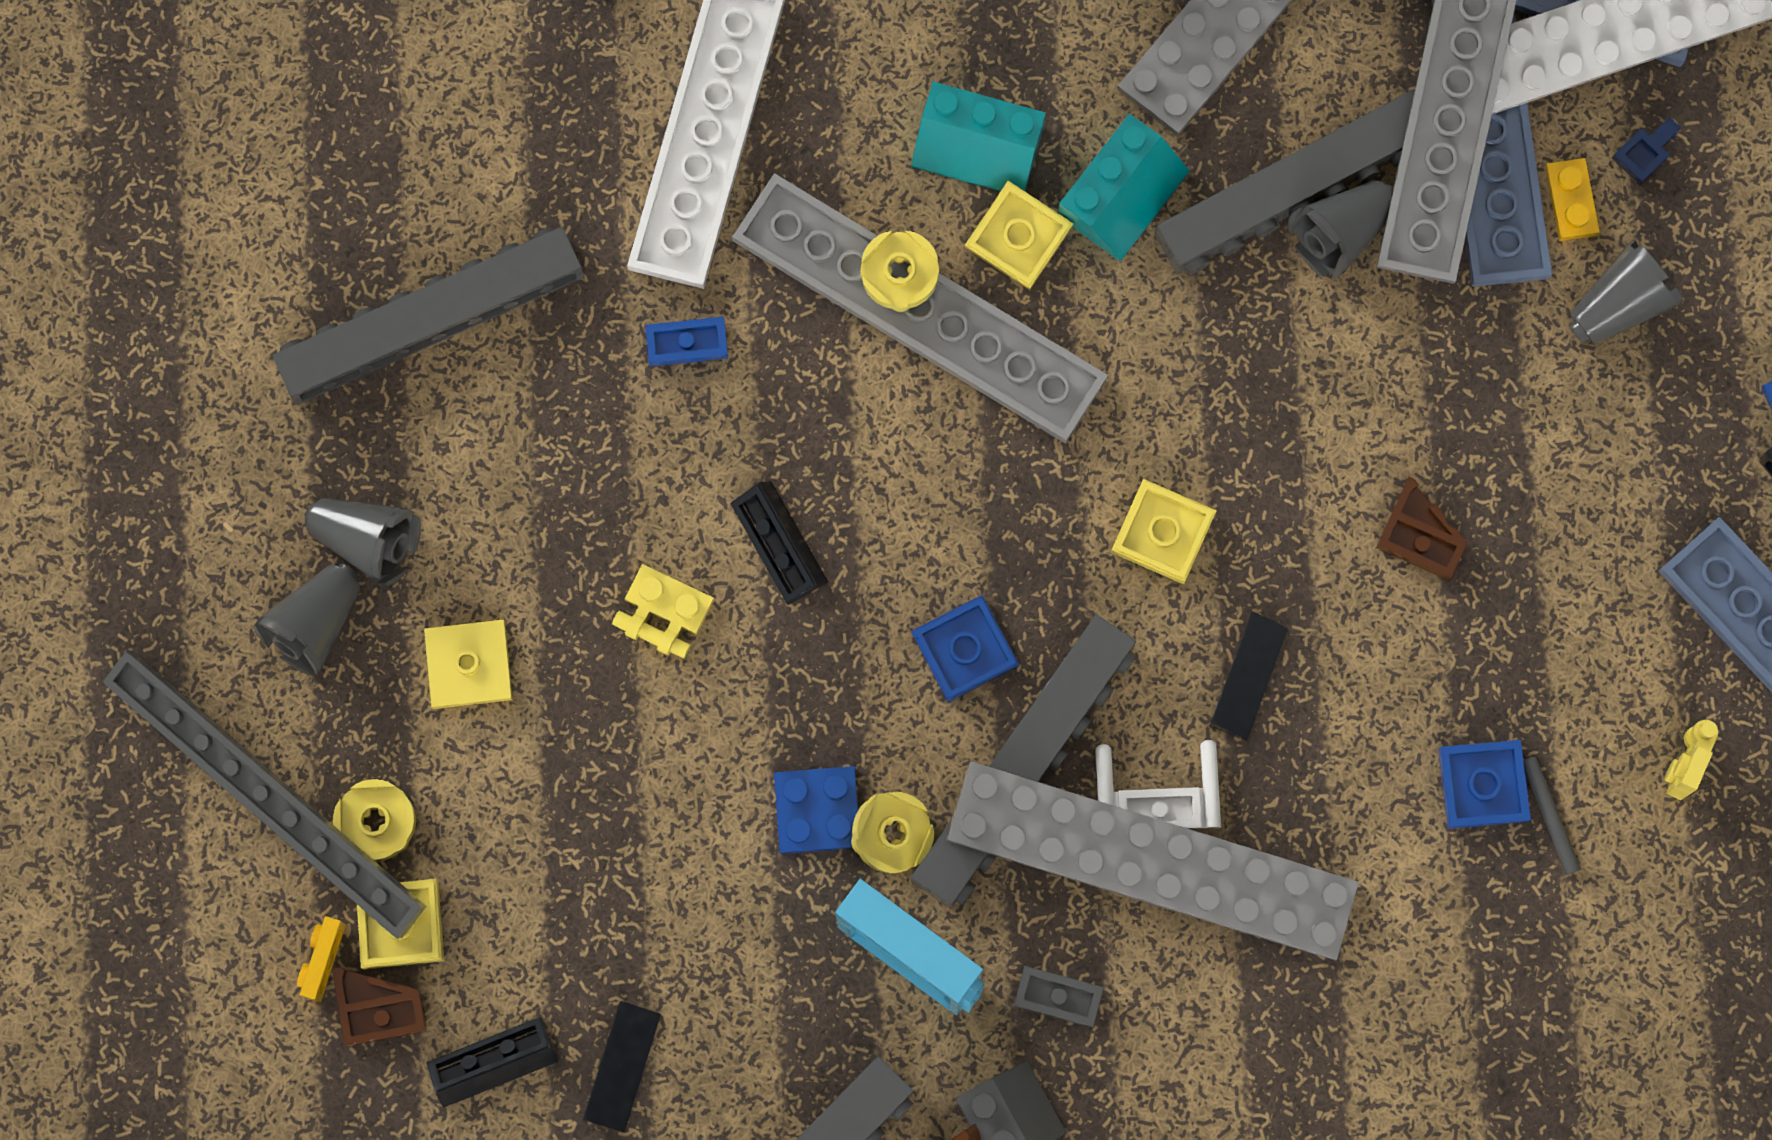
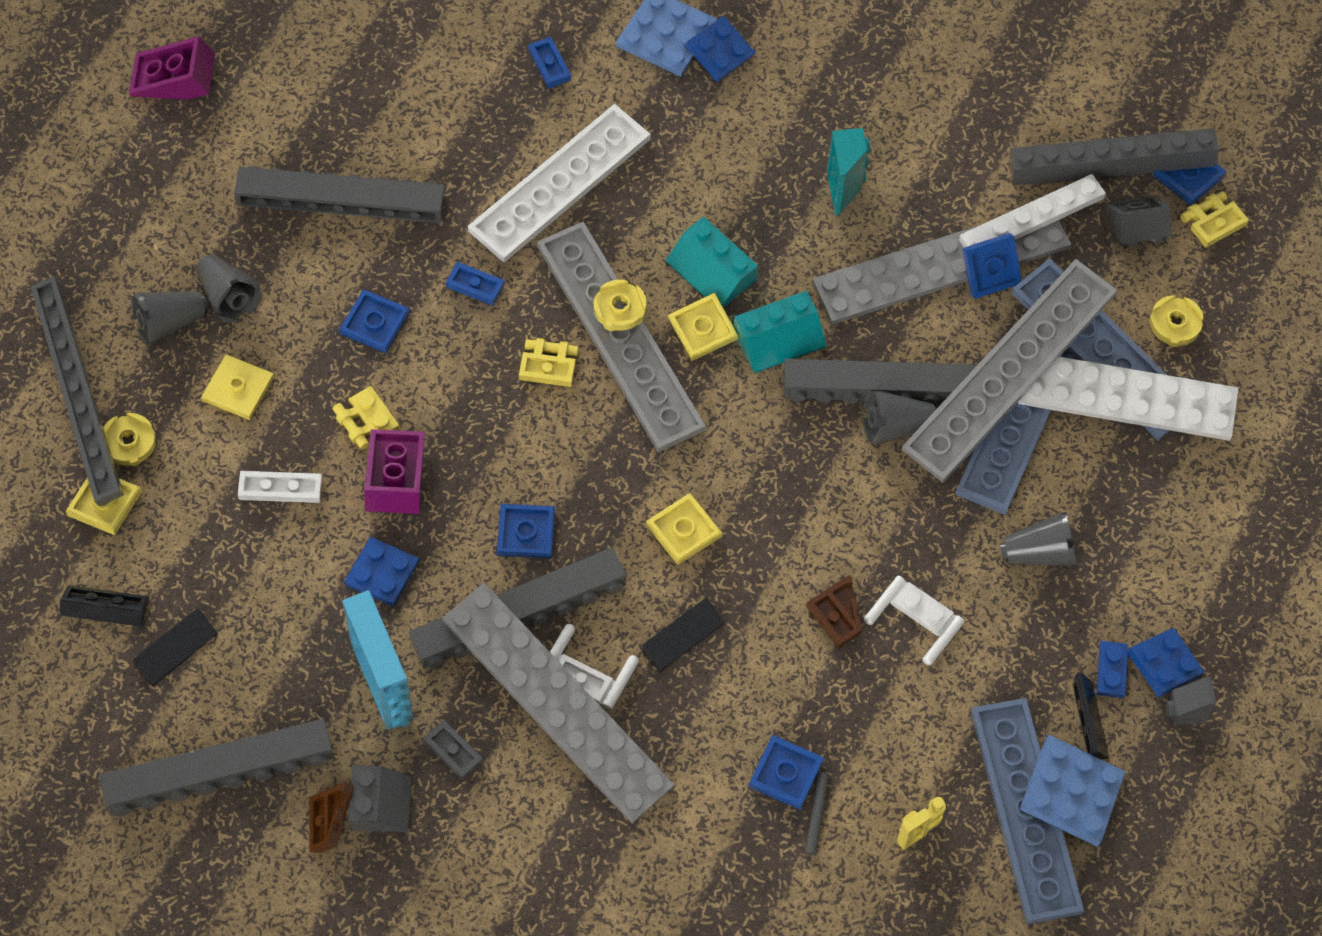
camera: 25 degrees right, 15 degrees down
(85, 260) = (173, 71): none -> magenta slope
(315, 975) = (54, 489): yellow plate -> none
(376, 1008) = (59, 539): reddish brown wing -> none
(587, 468) = (374, 321): none -> blue tile
(614, 771) = (280, 486): none -> white plate
(751, 666) = (394, 471): none -> magenta slope
(783, 540) = (460, 416): black slope -> none
(856, 408) = (547, 368): none -> light yellow plate
(912, 822) = (419, 589): light yellow plate -> none
(1522, 469) = (921, 609): none -> white plate
(1572, 199) = (1046, 478): yellow plate -> none
(1645, 153) = (1106, 475): dark blue plate -> none

